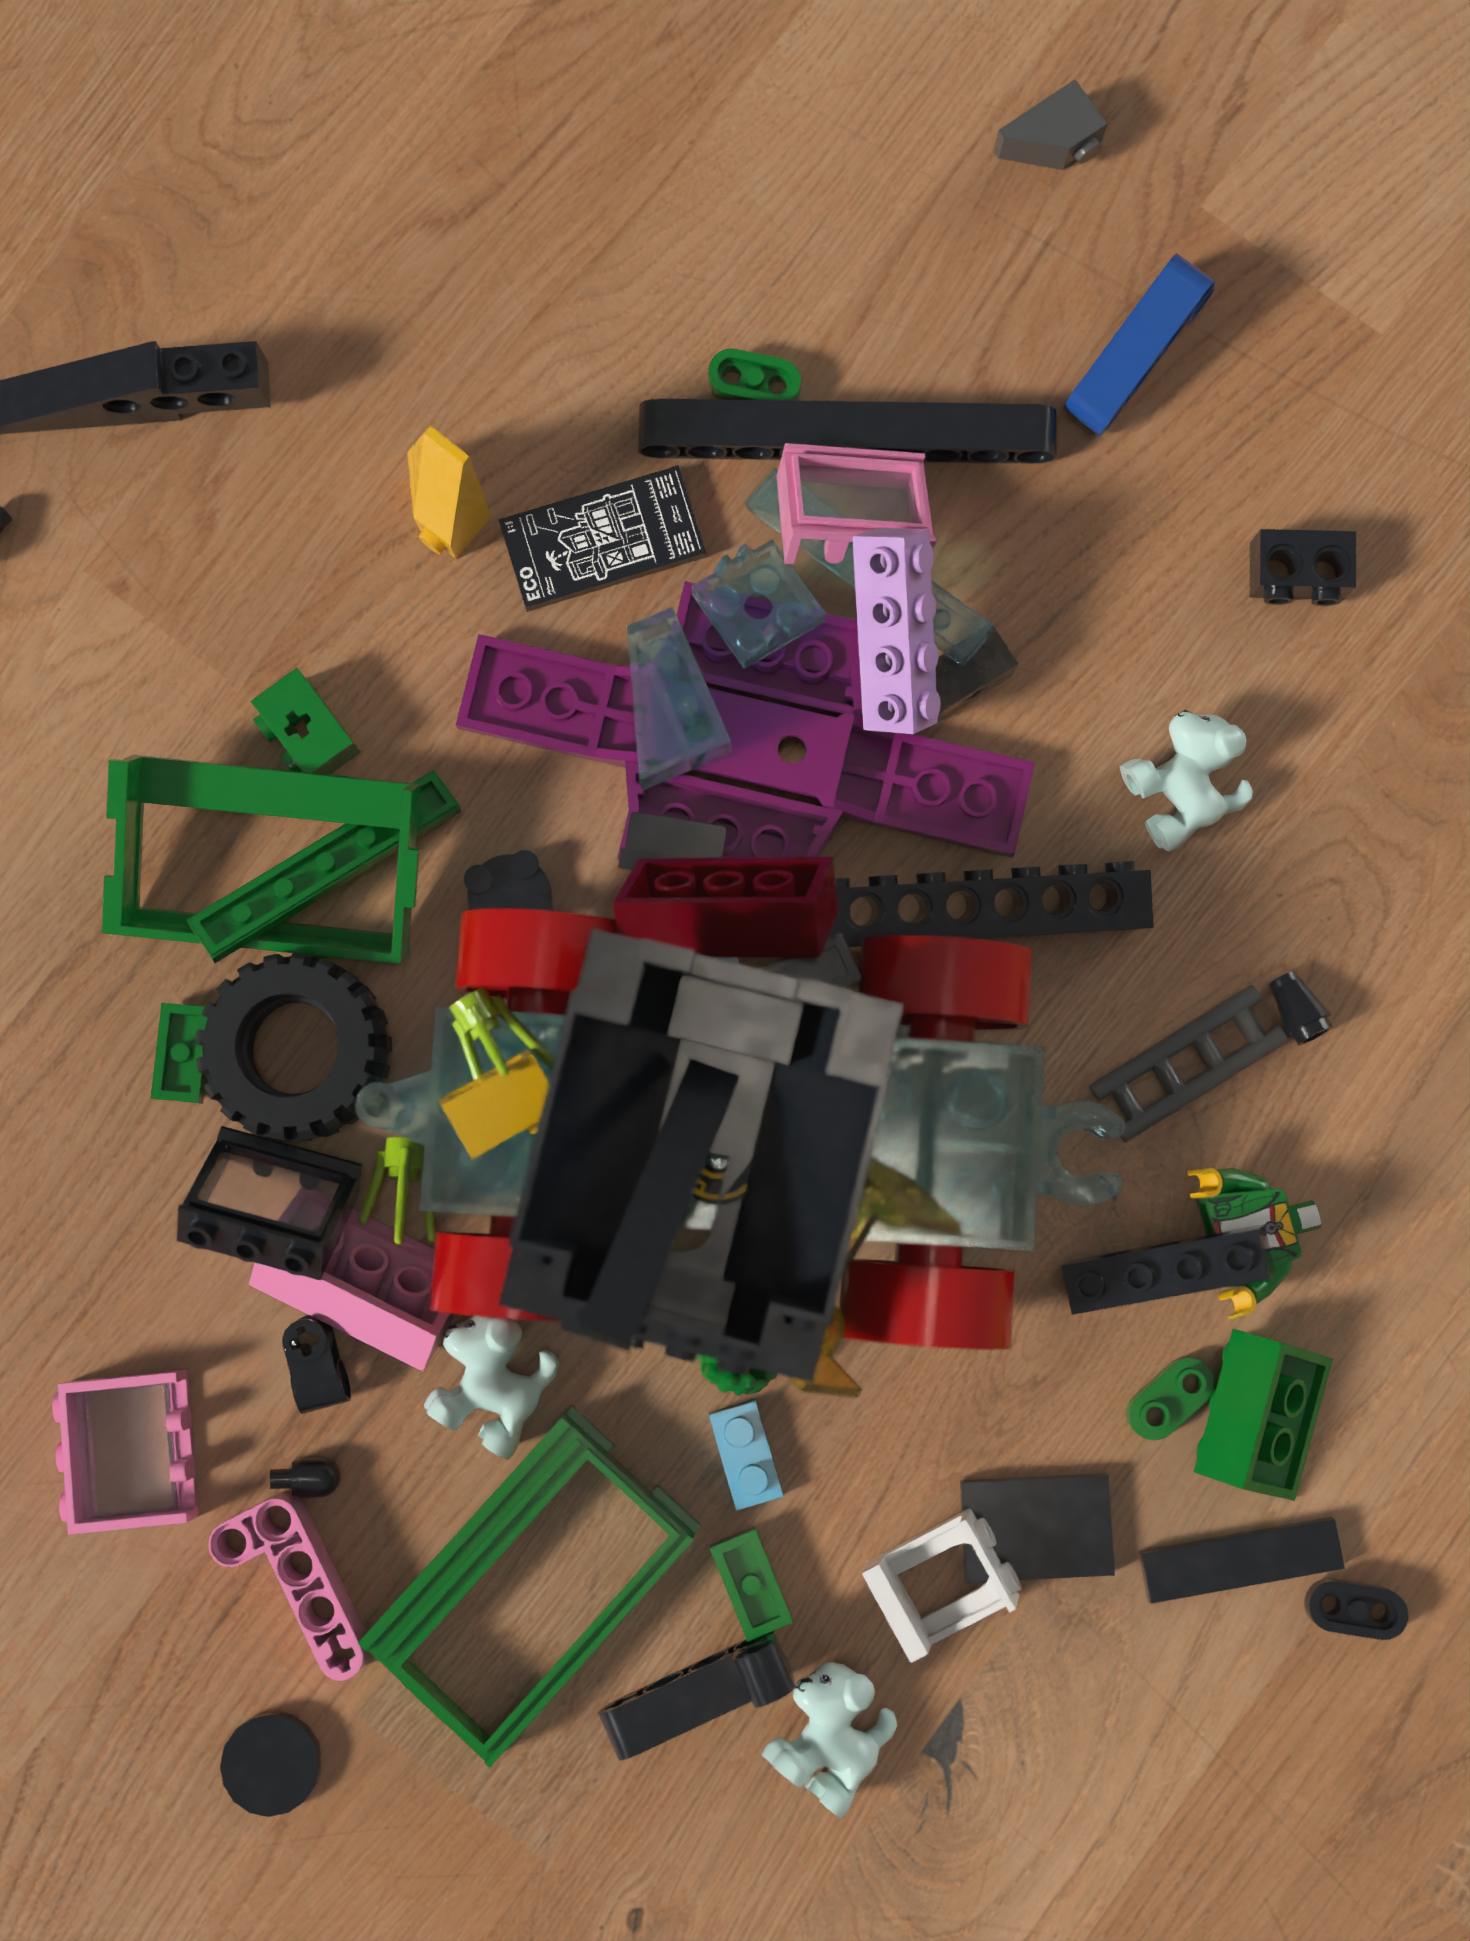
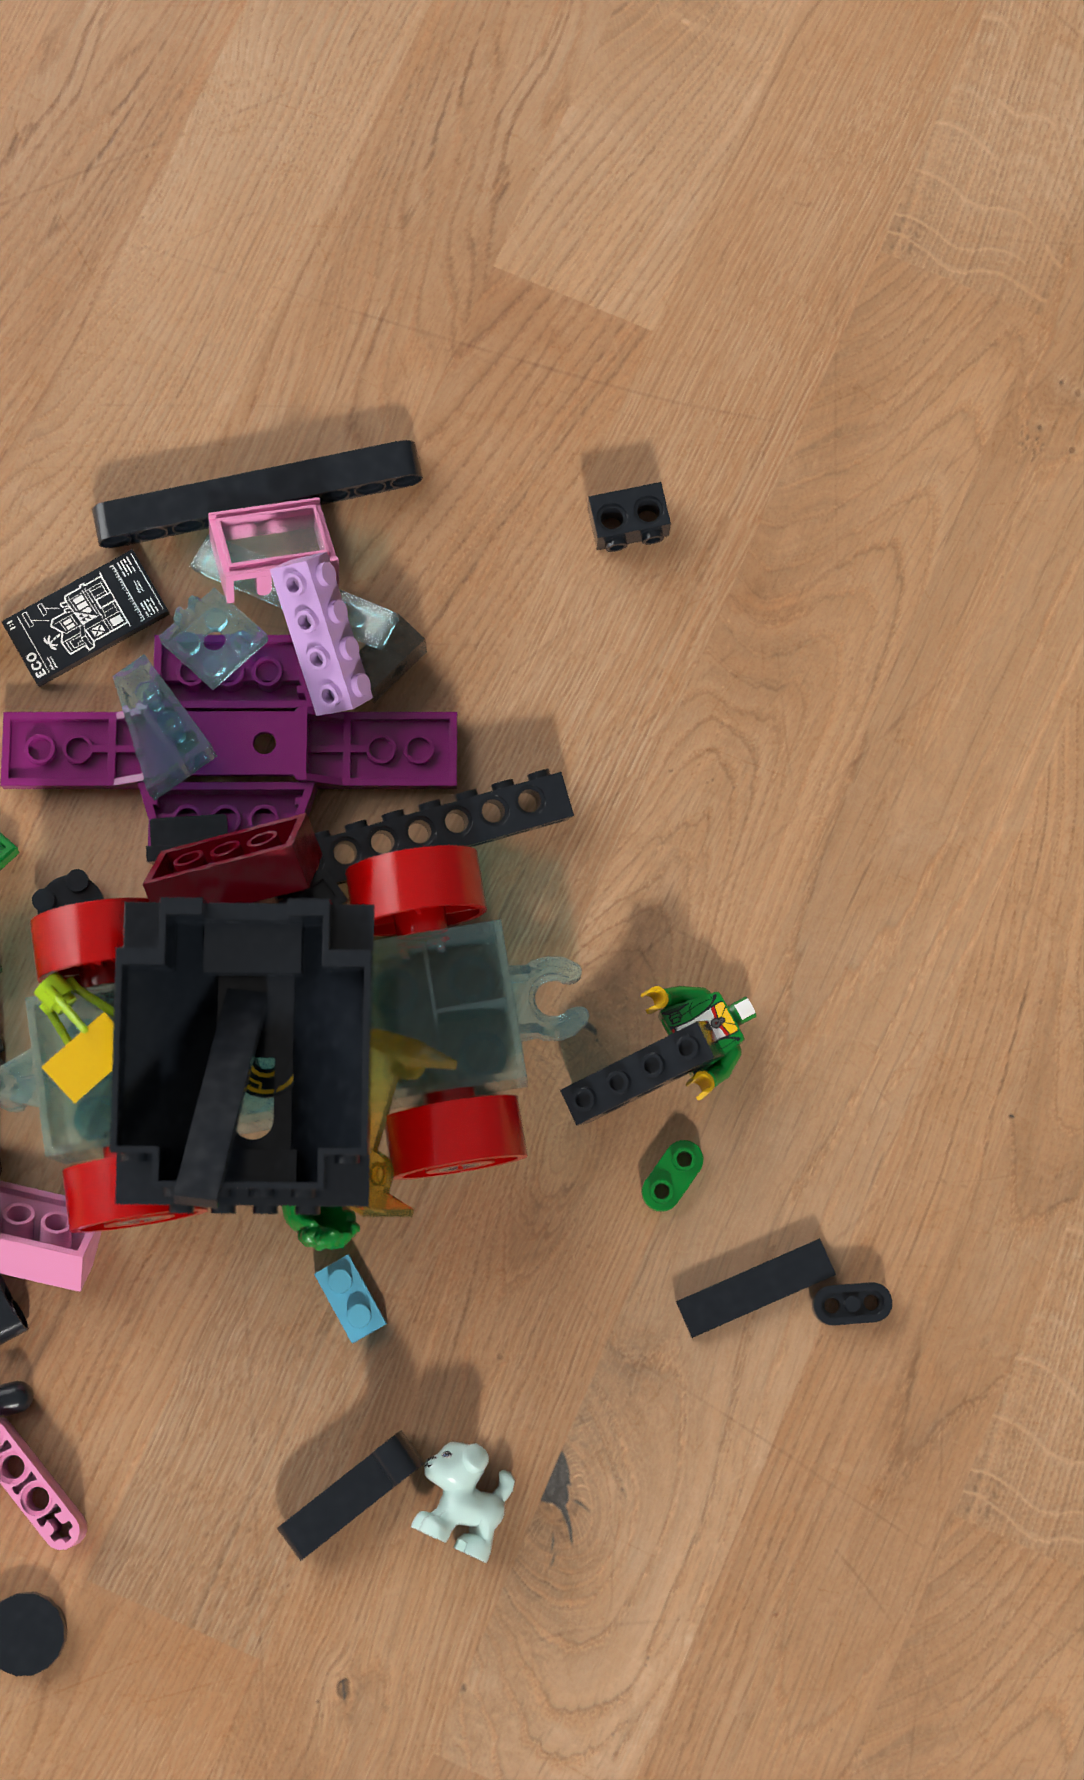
camera: 15 degrees left, 5 degrees down
(403, 1161) = (28, 1133): lime plant -> none
(484, 1349) = (125, 1260): light aqua animal -> none
(485, 1540) = (155, 1412): green piece -> none
(751, 1584) = (376, 1397): green plate -> none
(755, 374) = (177, 466): green plate -> none
(919, 1633) = (495, 1388): white panel -> none
(1043, 1525) = (590, 1301): black tile -> none
(1054, 131) = (366, 235): dark grey slope -> none
(1140, 343) = (465, 378): blue beam -> none
(1194, 1033) = (652, 913): dark grey bar -> none
(1200, 747) = (581, 670): light aqua animal -> none
(1262, 1415) = (746, 1170): green slope -> none
(1299, 1009) = (704, 853): black cone -> none

